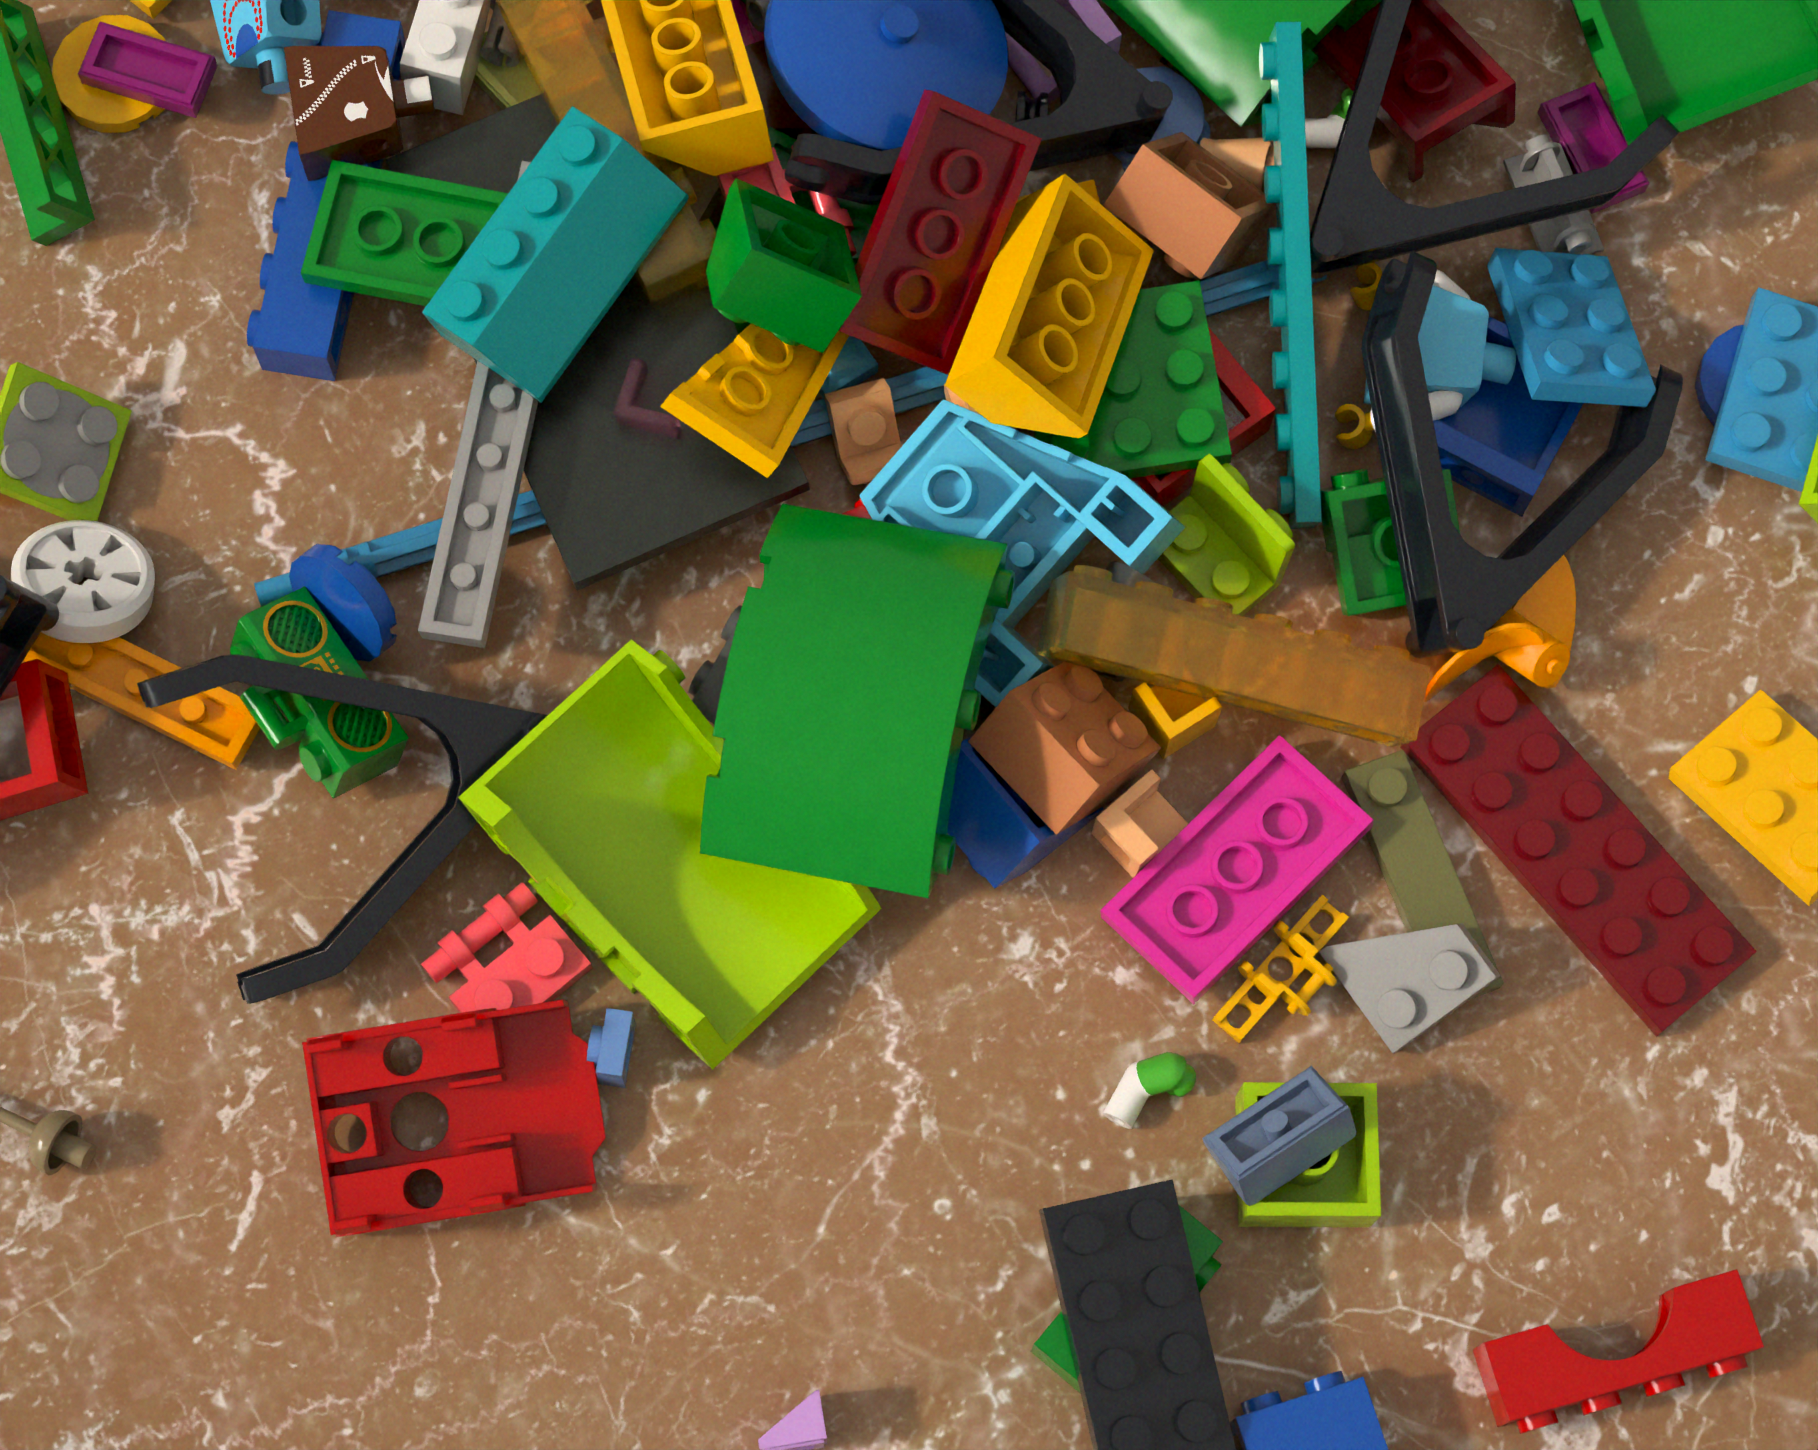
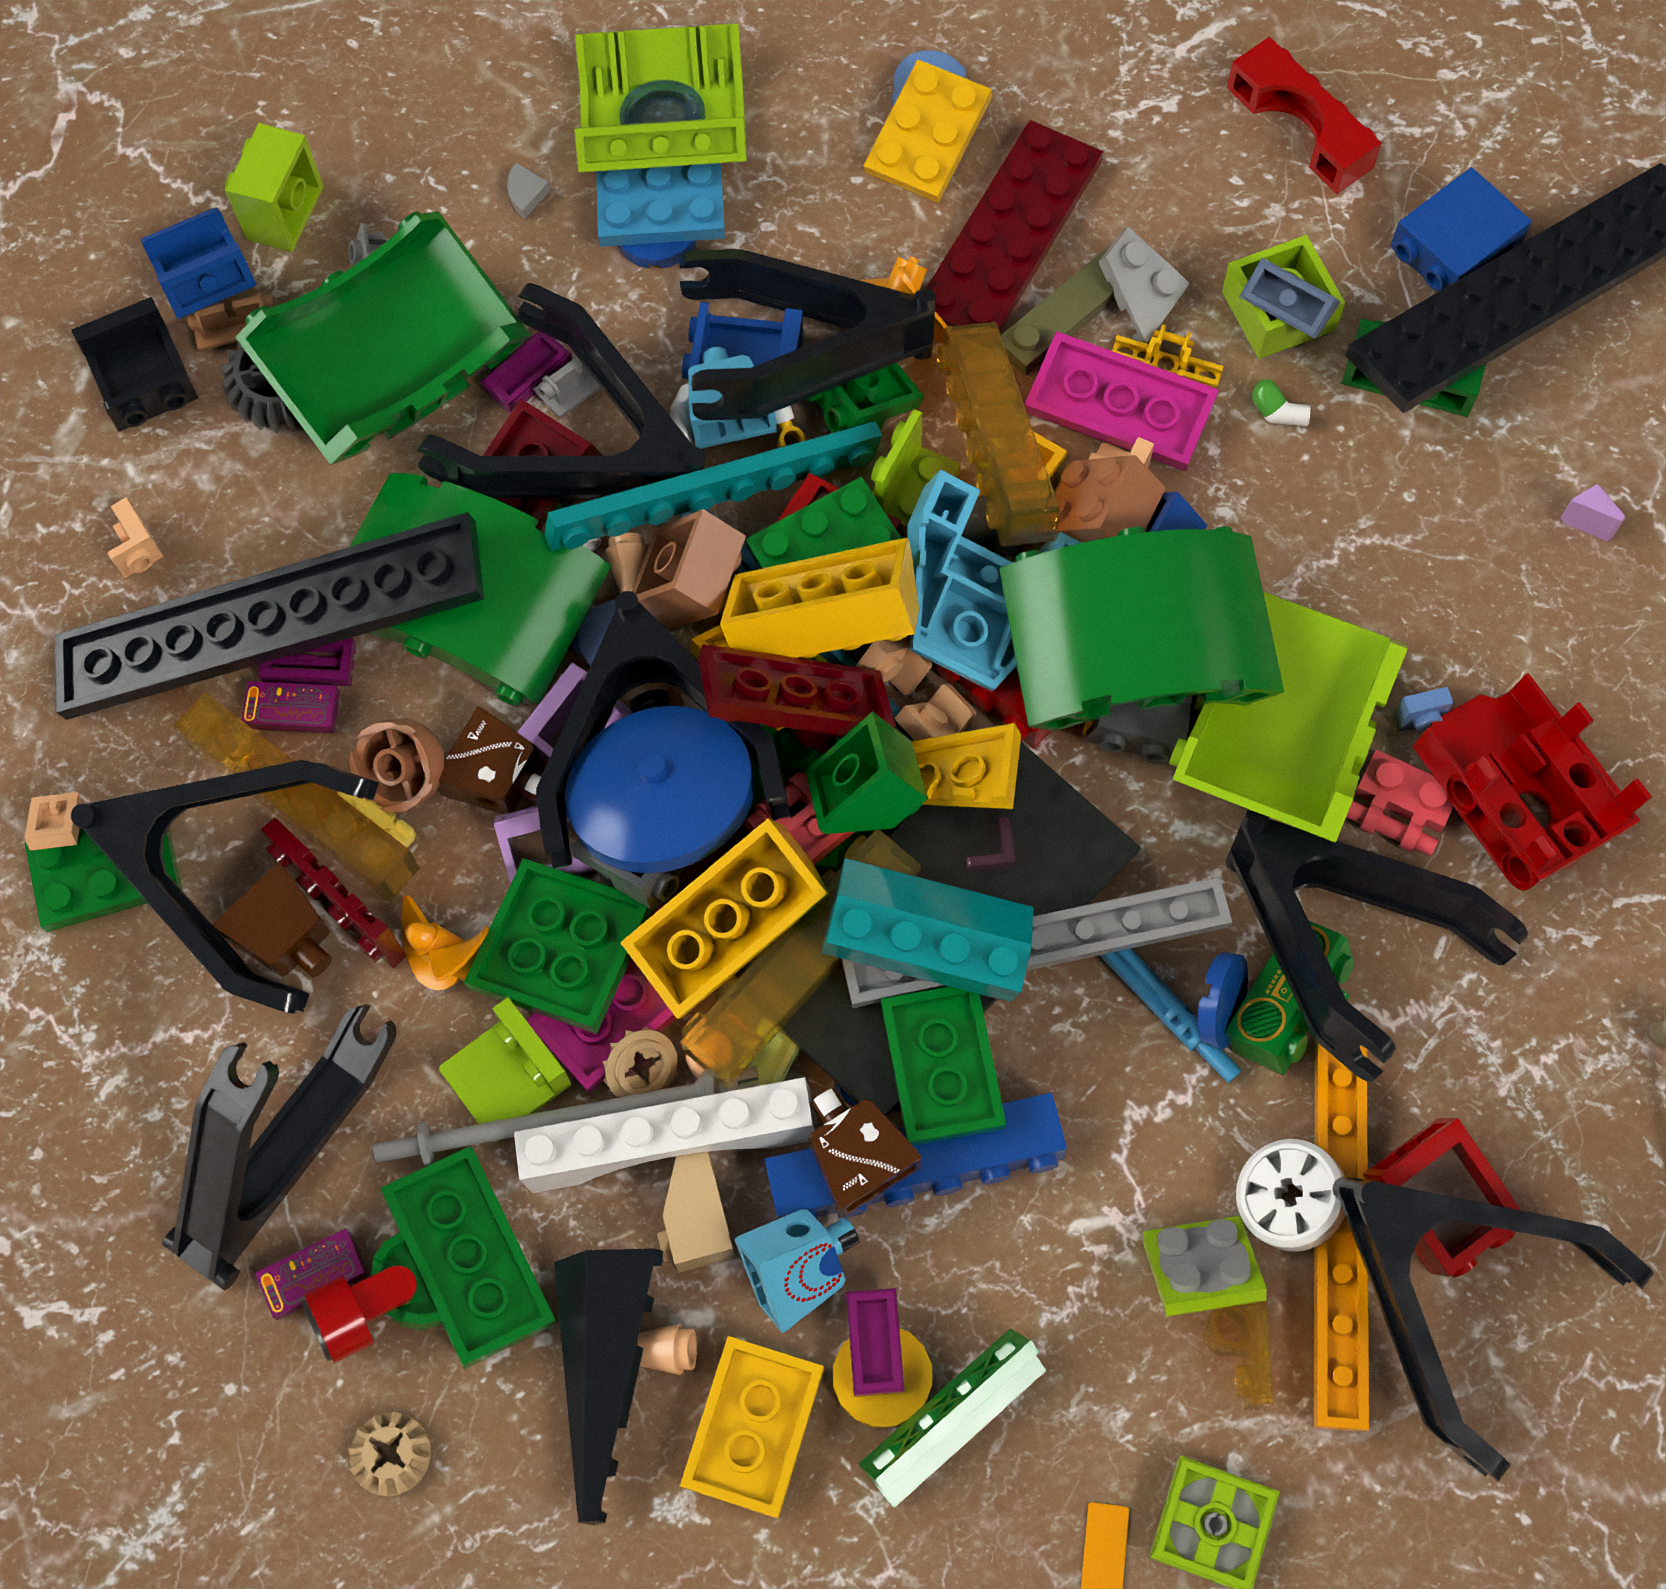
camera: 105 degrees left, 5 degrees down
(1570, 328) = (677, 324): dark azure plate -> none

